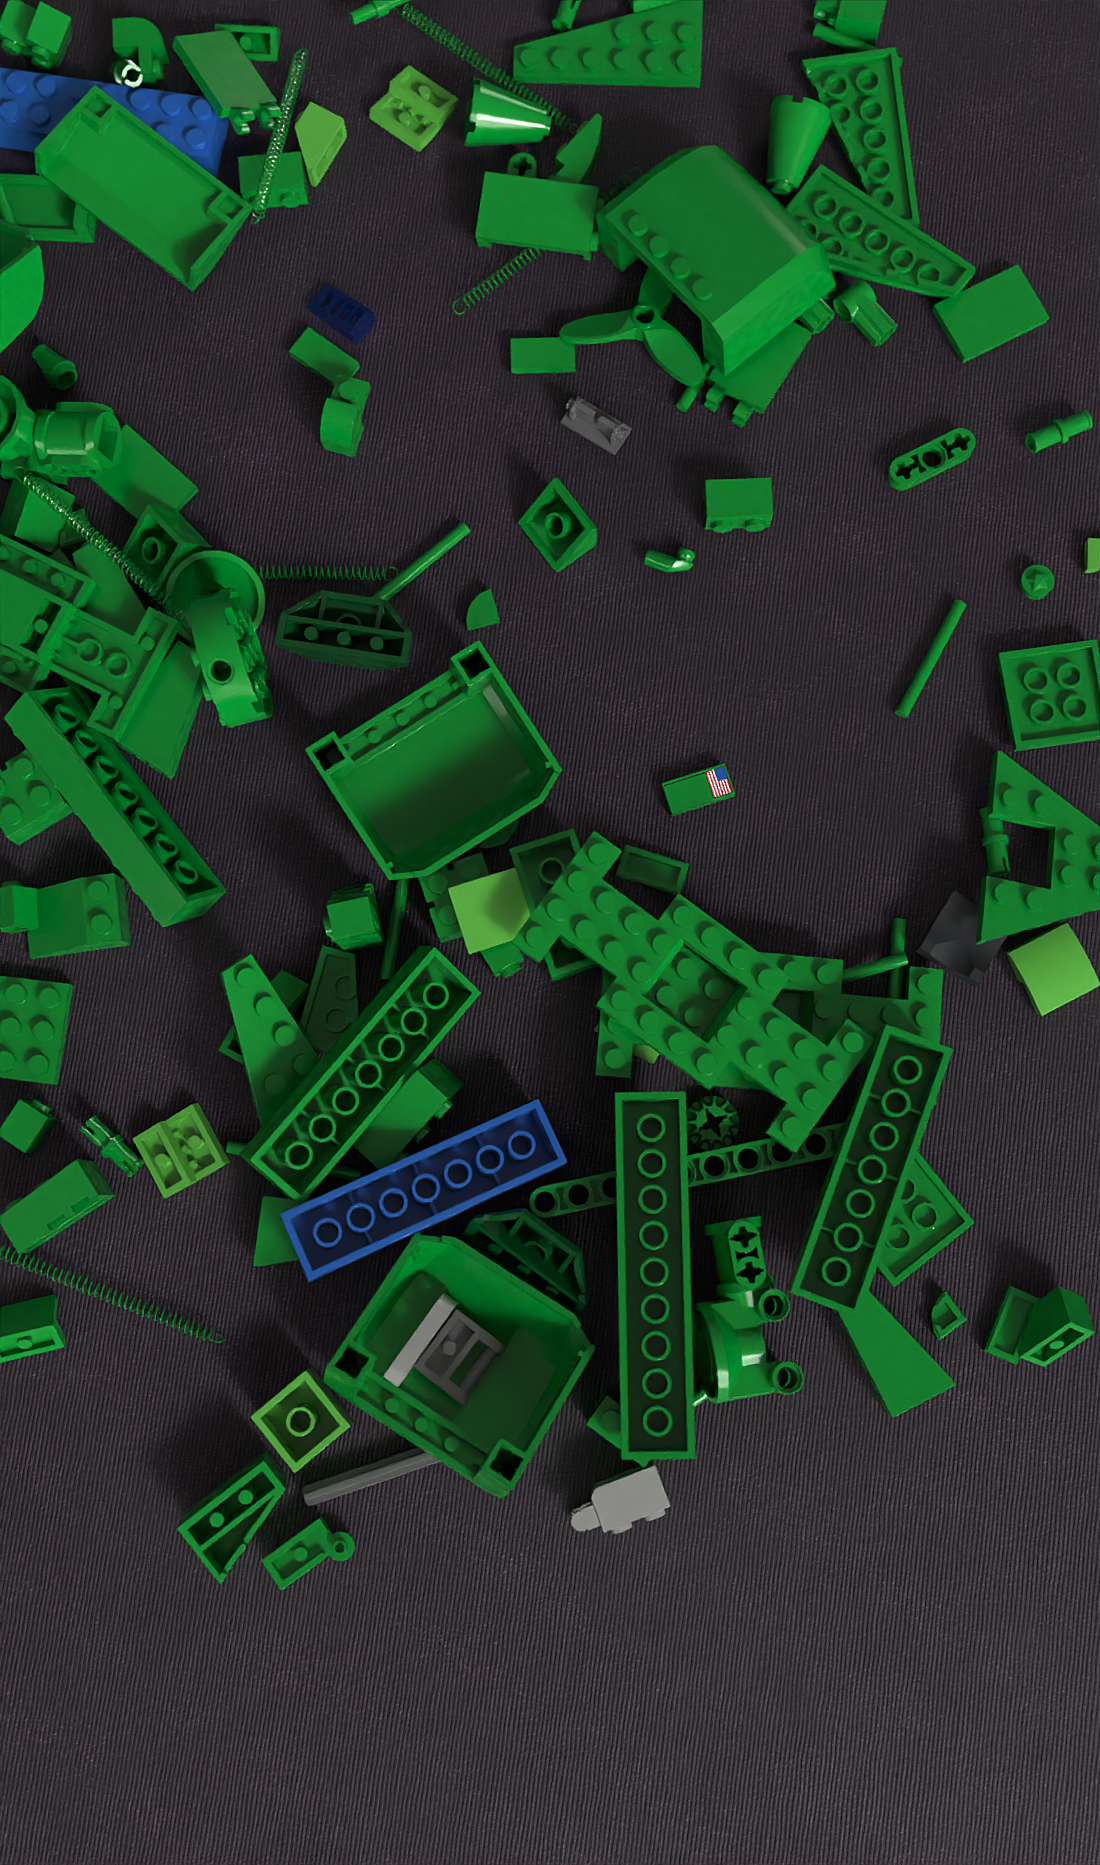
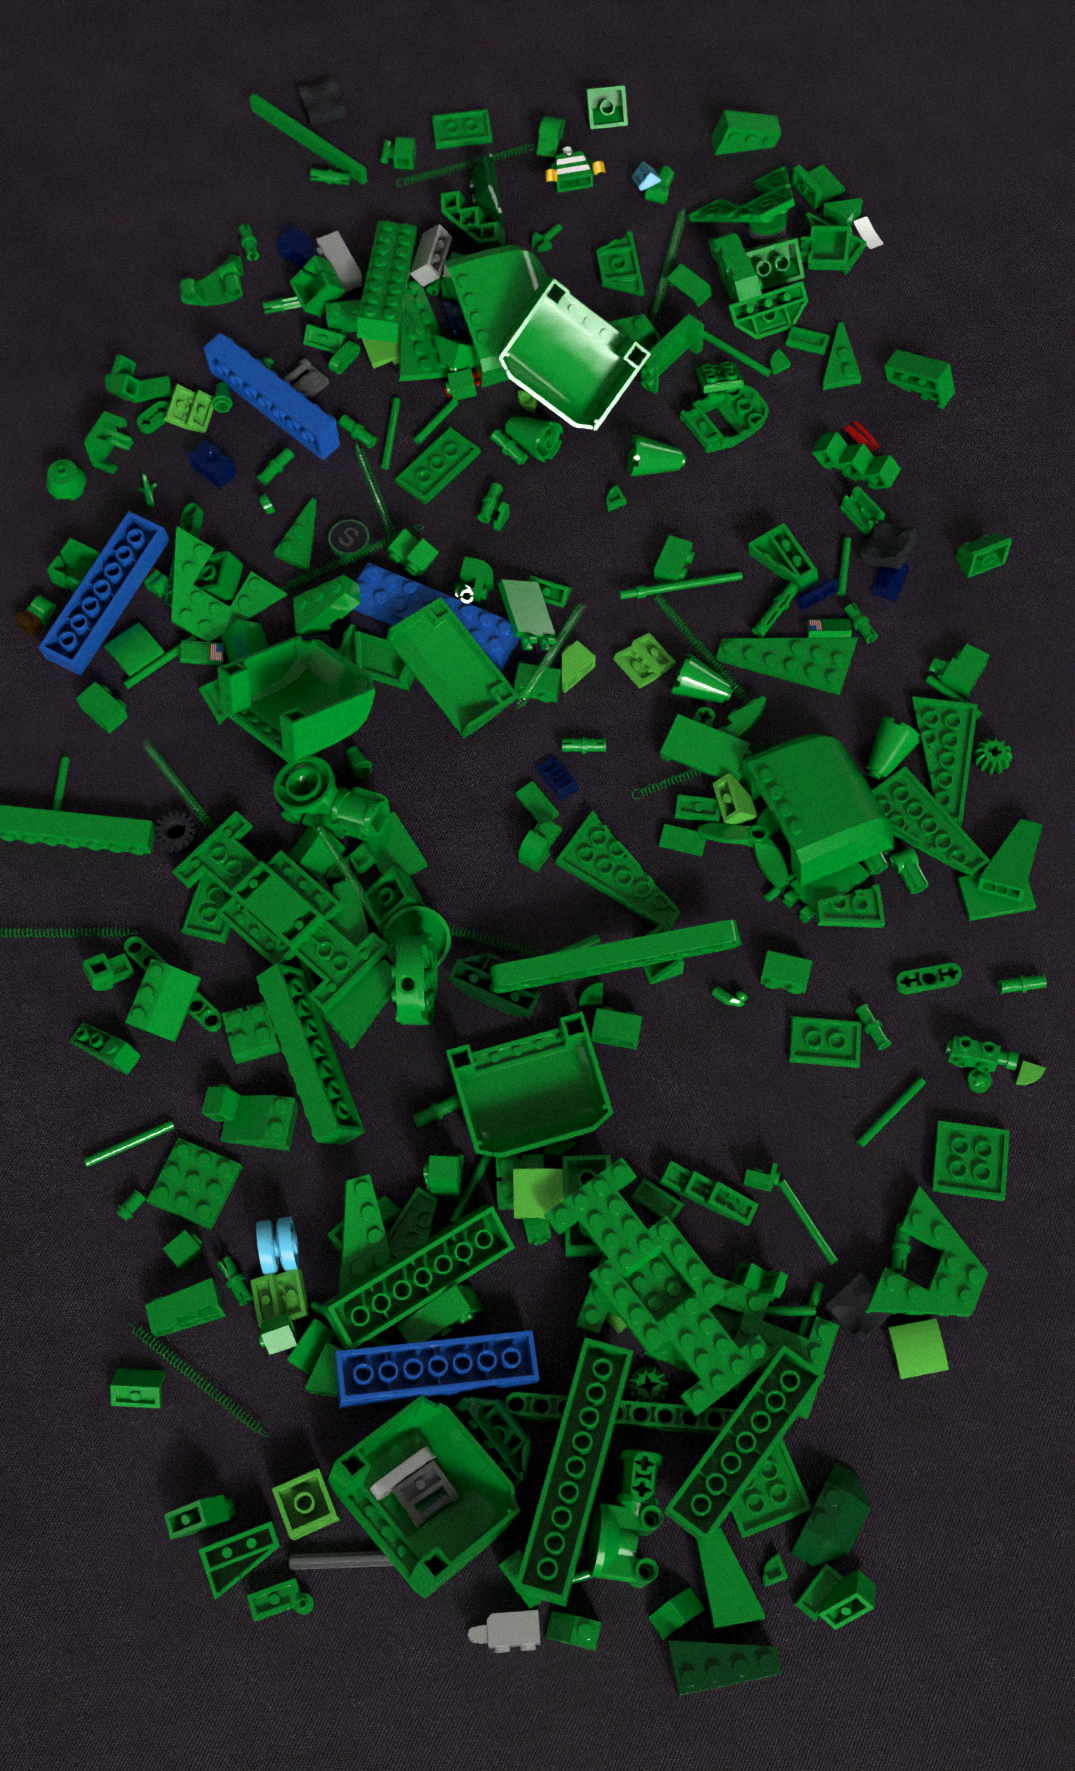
camera: 15 degrees right, 15 degrees down
(103, 503) = (362, 858): none -> green tile
(153, 1083) = (276, 1245): none -> medium azure wheel
(164, 1479) = (199, 1516): none -> green hinge
(194, 1202) = (278, 1334): none -> brick
(244, 1204) = (310, 1346): none -> green slope
(316, 833) = (436, 1111): none -> green pin
(365, 255) = (583, 745): none -> green pin
(455, 424) = (610, 868): none -> green wing
(499, 547) = (615, 956): none -> green beam
(529, 647) = (616, 1028): none -> green brick
(551, 304) = (697, 809): none -> green plate
(595, 425) = (705, 894): dark grey hinge -> none
(598, 278) = (734, 801): none -> bright green slope
(698, 789) = (704, 1155): green tile -> none
(709, 1474) = (573, 1630): none -> green slope
(718, 840) = (708, 1193): none -> green slope
(781, 802) = (759, 1179): none -> green bracket
(806, 390) = (856, 909): none -> green wing
(816, 586) = (825, 1042): none -> green tile
(822, 940) = (758, 1280): none -> green brick
(835, 1409) = (676, 1613): none -> green slope
(861, 841) = (808, 1222): none -> green piece
(875, 547) = (873, 1027): none -> green pin
(911, 1462) = (719, 1665): none -> dark green wedge
(935, 116) = (997, 762): none -> green gear
(1006, 265) = (1011, 865): none -> green slope
(1008, 1225) = (833, 1519): none -> dark green wedge
(1029, 548) = (976, 1055): none -> green brick

